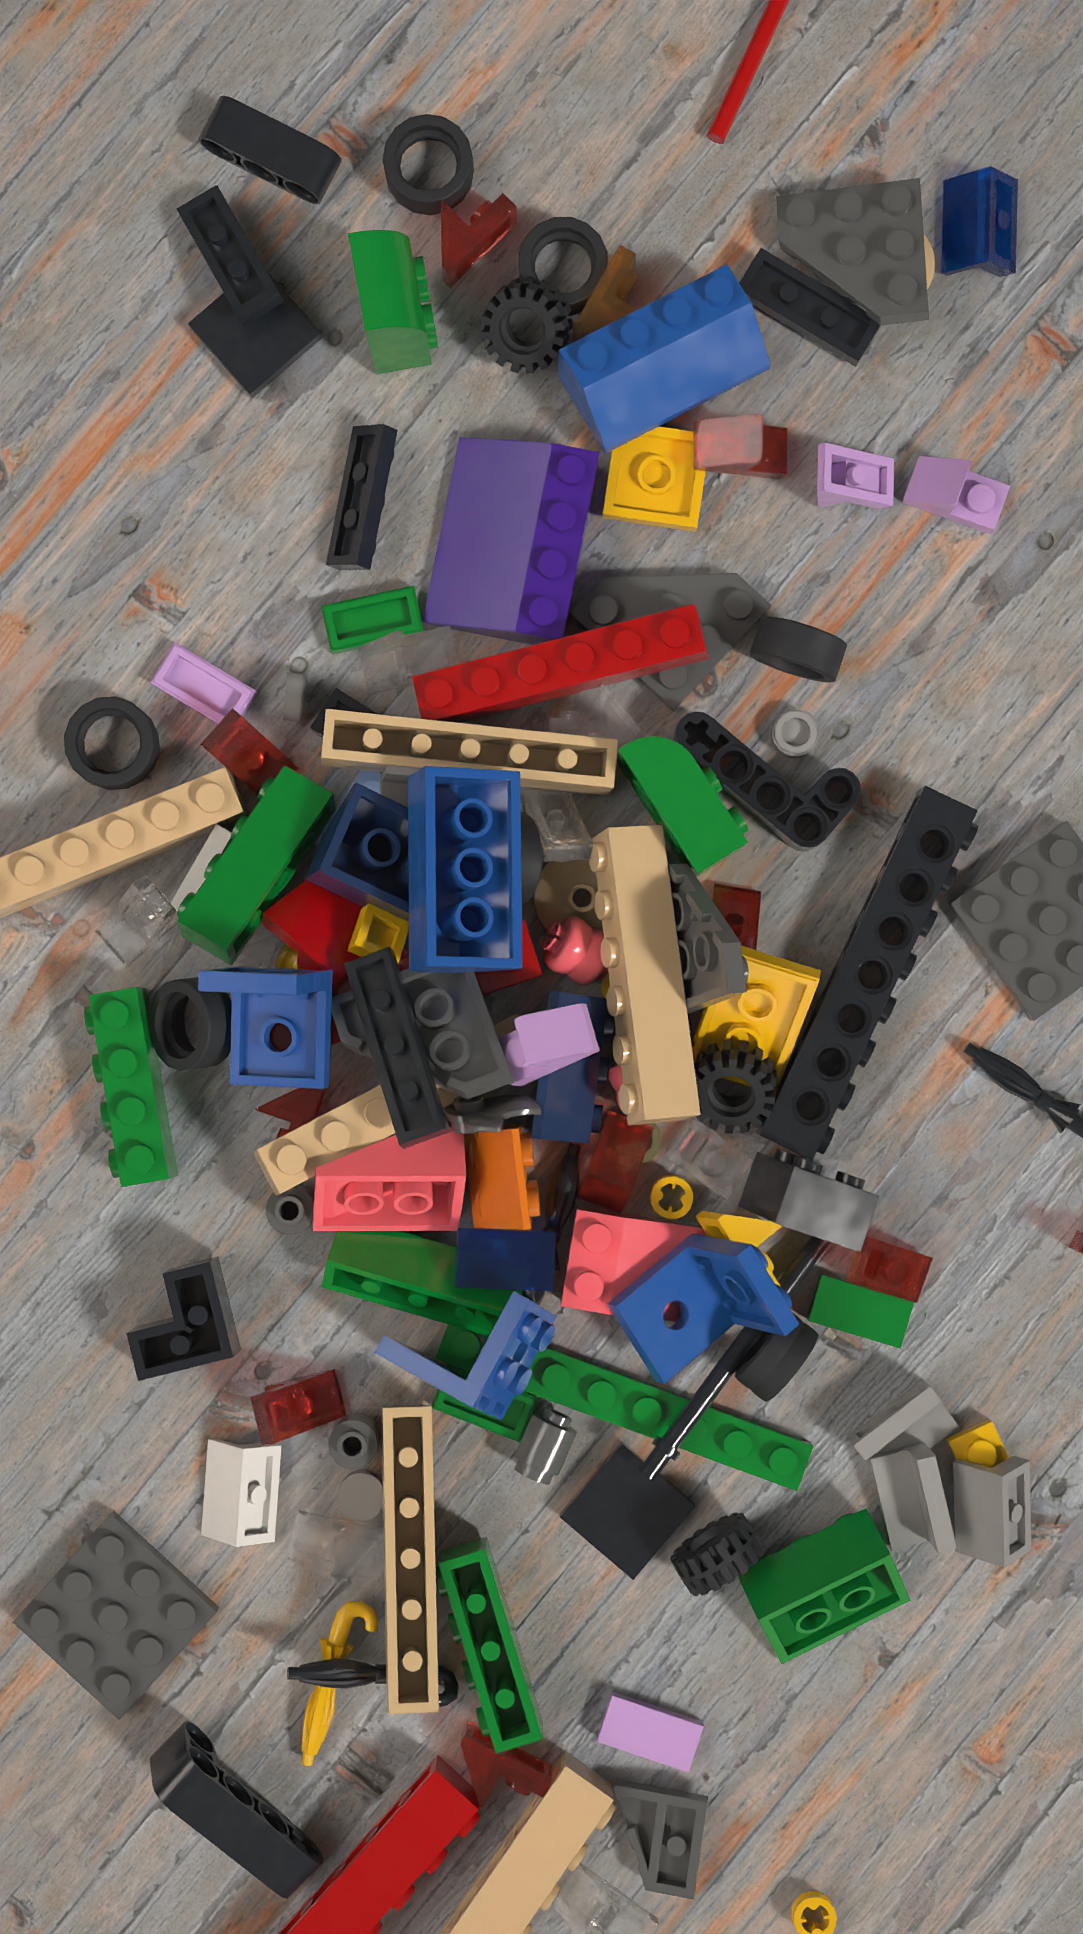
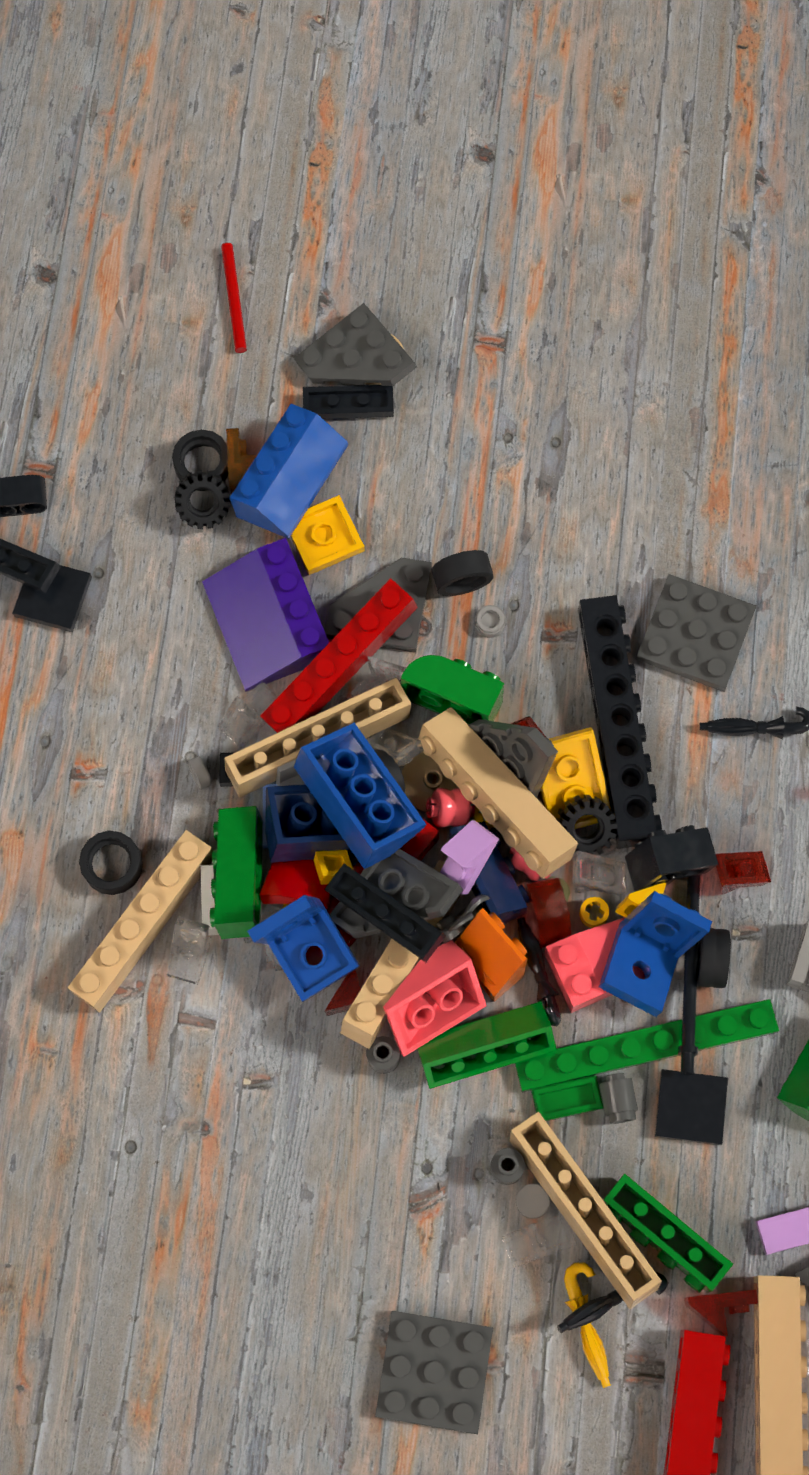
camera: 35 degrees left, 15 degrees down
(132, 1087) = (245, 1045): green brick -> none
(168, 1027) = (239, 994): black tyre -> none
(200, 1325) = (374, 1161): black brick -> none
(201, 685) = (144, 801): lavender tile -> none
(229, 1813) = (584, 1442): black beam -> none
(241, 1492) = (460, 1245): white panel -> none
(245, 751) = (192, 816): clear red slope -> none
(297, 1406) = (461, 1168): clear red slope -> none
(361, 497) = (168, 644): black plate -> none
(371, 617) = (210, 709): green tile -> none
(390, 298) = (121, 529): green brick -> none
(420, 129) = (90, 432): black tyre -> none
(464, 244) = (141, 479): clear red slope -> none
(501, 1366) = (563, 1072): blue bracket -> none
(505, 1259) = (524, 998): clear blue panel -> none
(717, 1554) = (758, 1092): black tyre -> none
(740, 446) = (359, 491): clear red slope -> none
(758, 774) = (487, 651): black beam -> none
(854, 477) = (430, 469): lavender slope -> none
(860, 1311) = (743, 907): green tile -> none
(955, 493) = (491, 447): lavender slope -> none
(980, 222) = (410, 307): clear blue panel -> none

